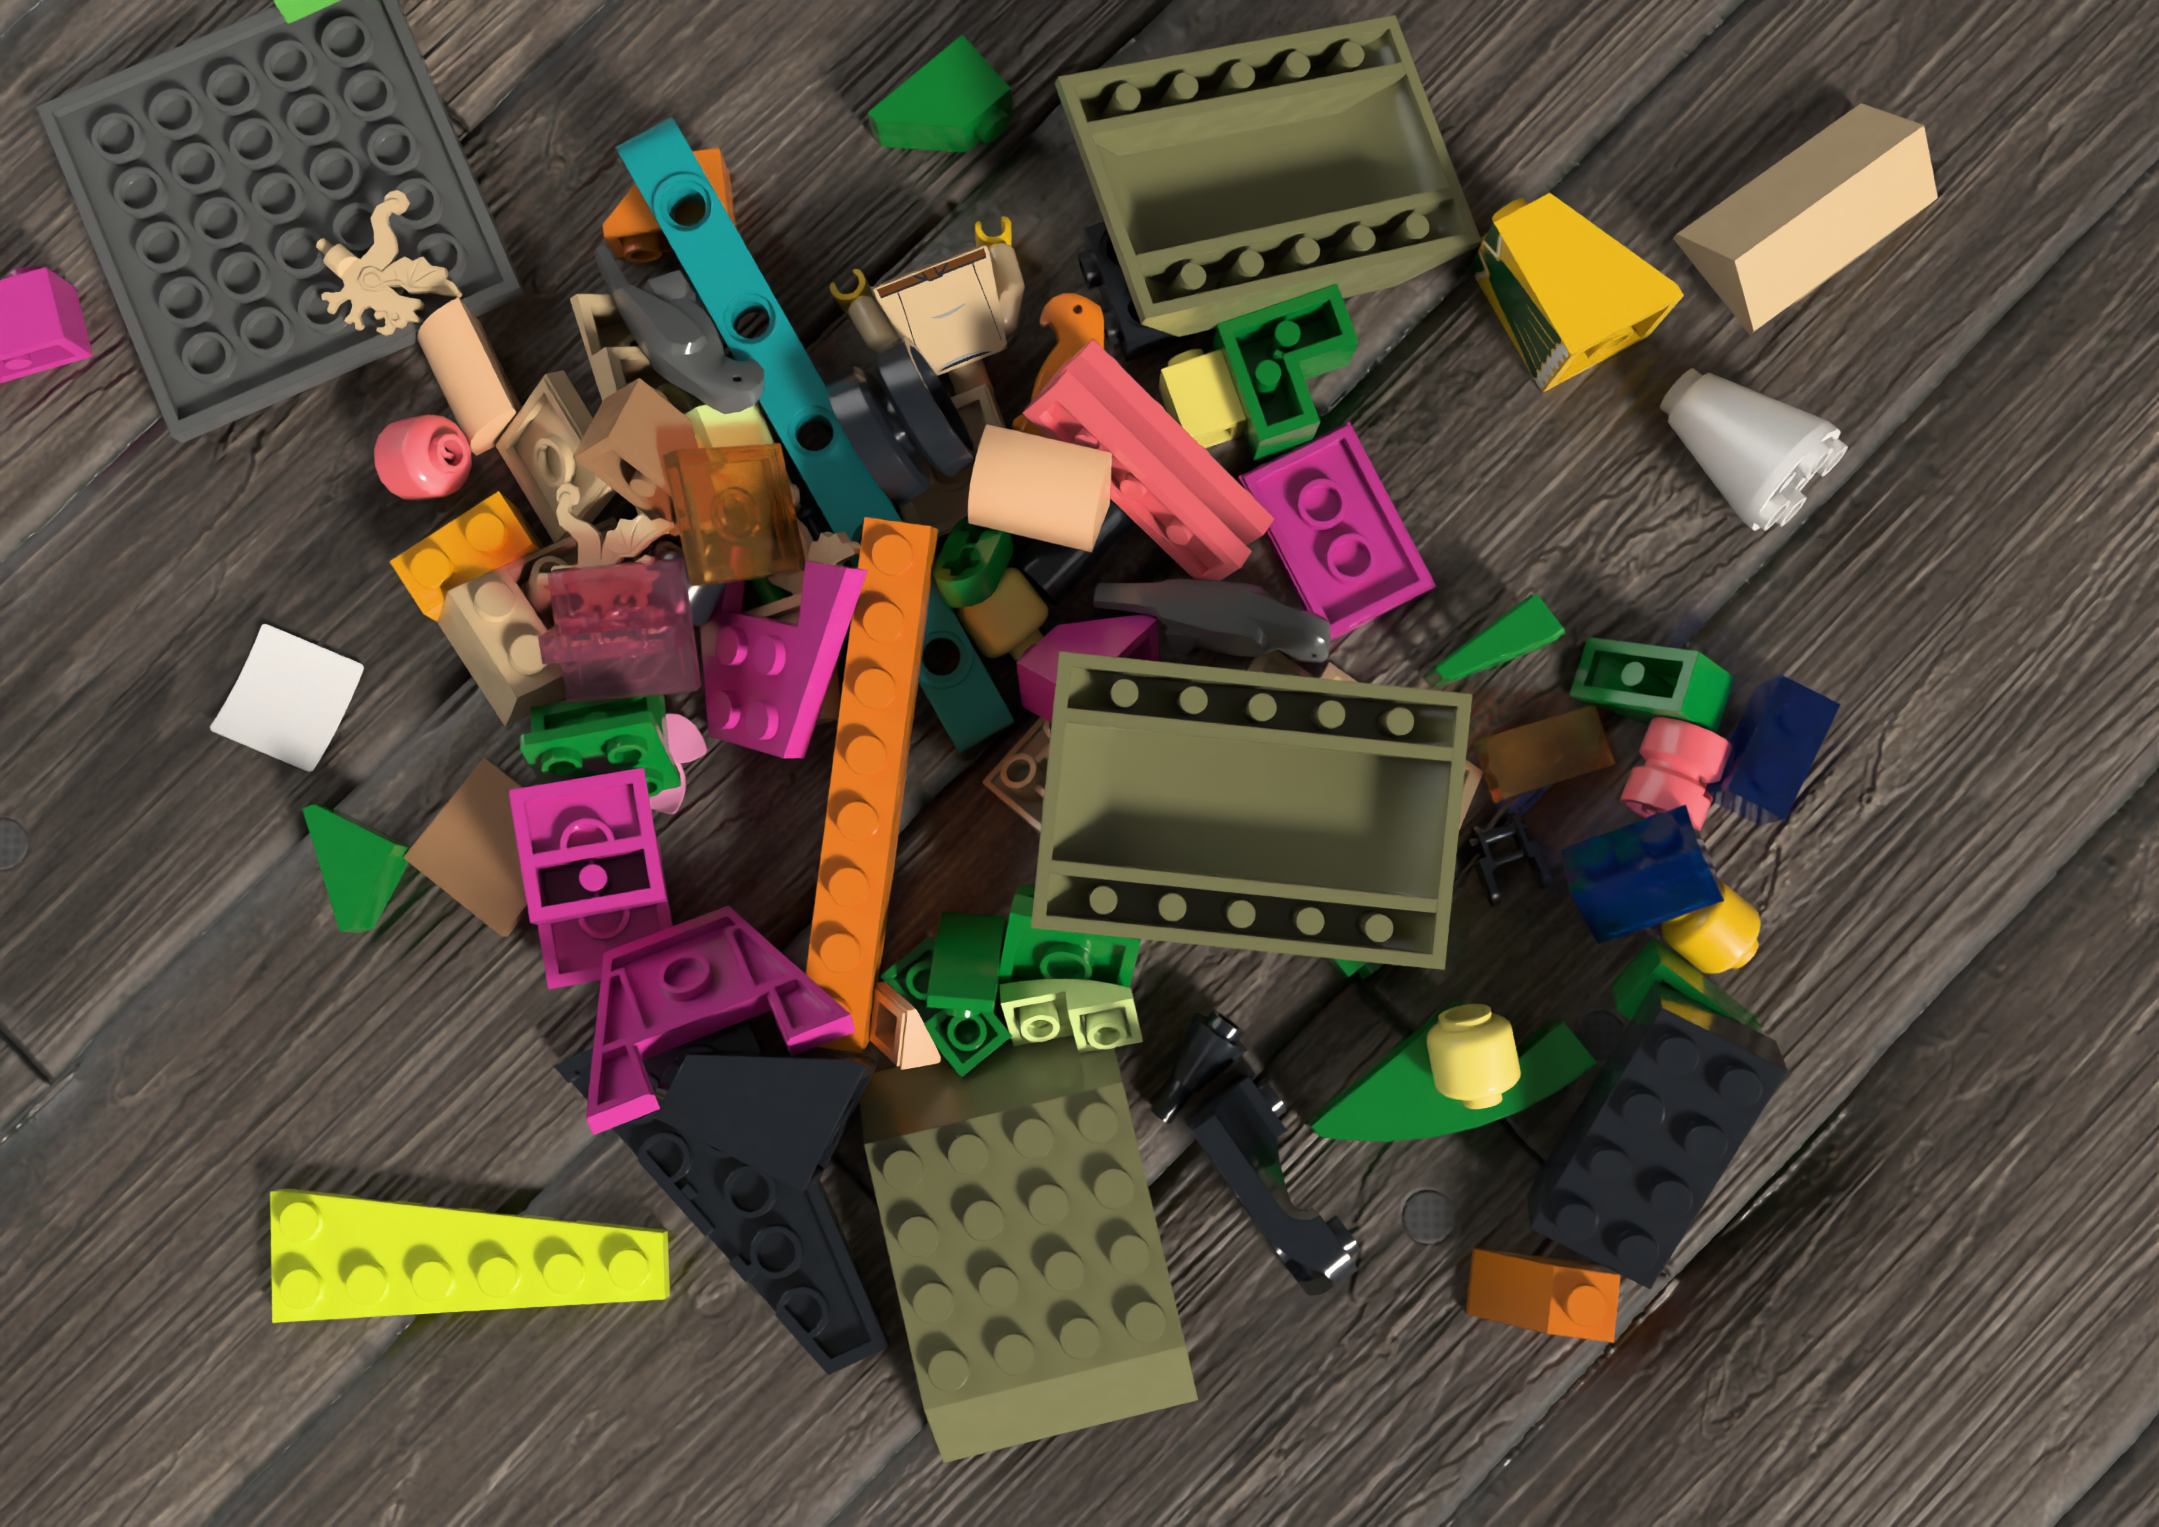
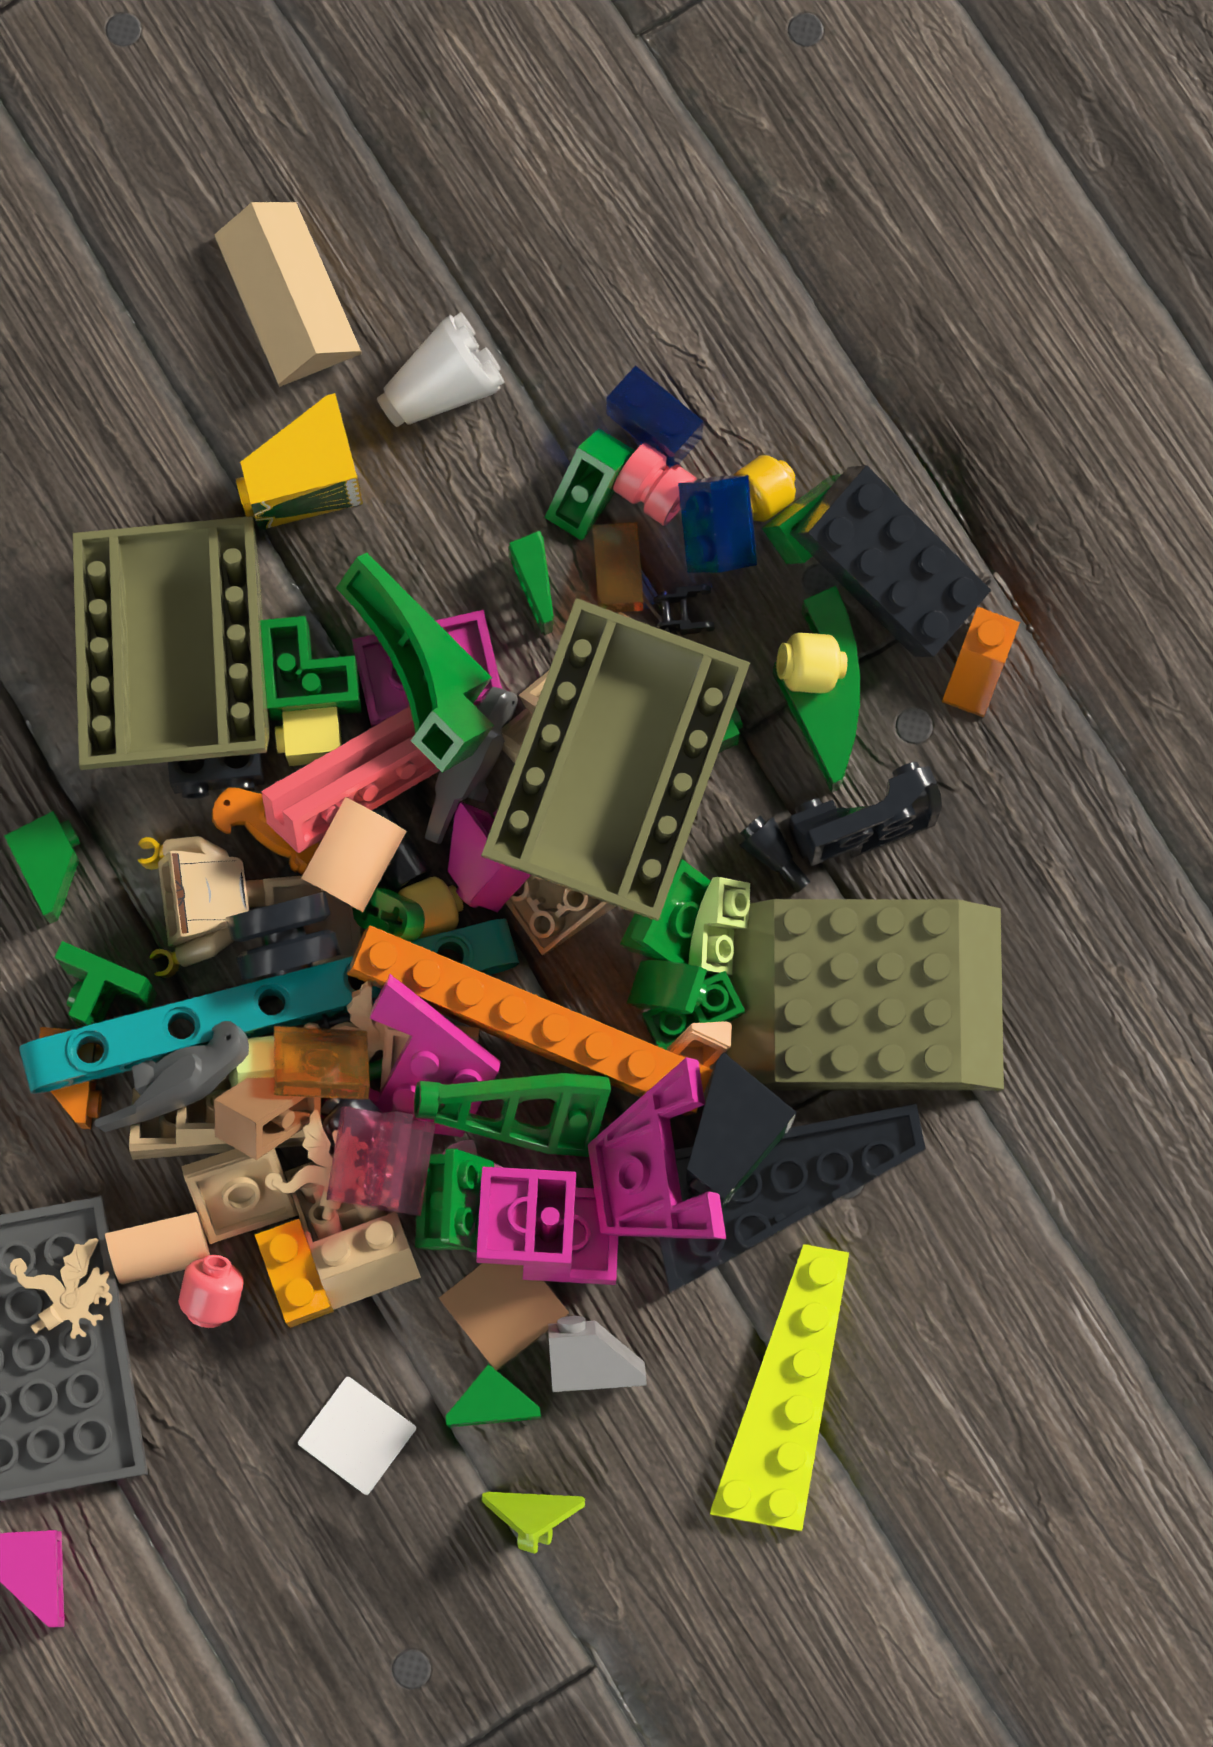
camera: 75 degrees left, 5 degrees down
(219, 952) = (532, 1514): none -> lime piece
(439, 982) = (590, 1357): none -> light grey slope
(750, 880) = (573, 1123): none -> green plate
(787, 208) = (101, 985): none -> green bracket
(1335, 530) = (432, 666): none -> green arch

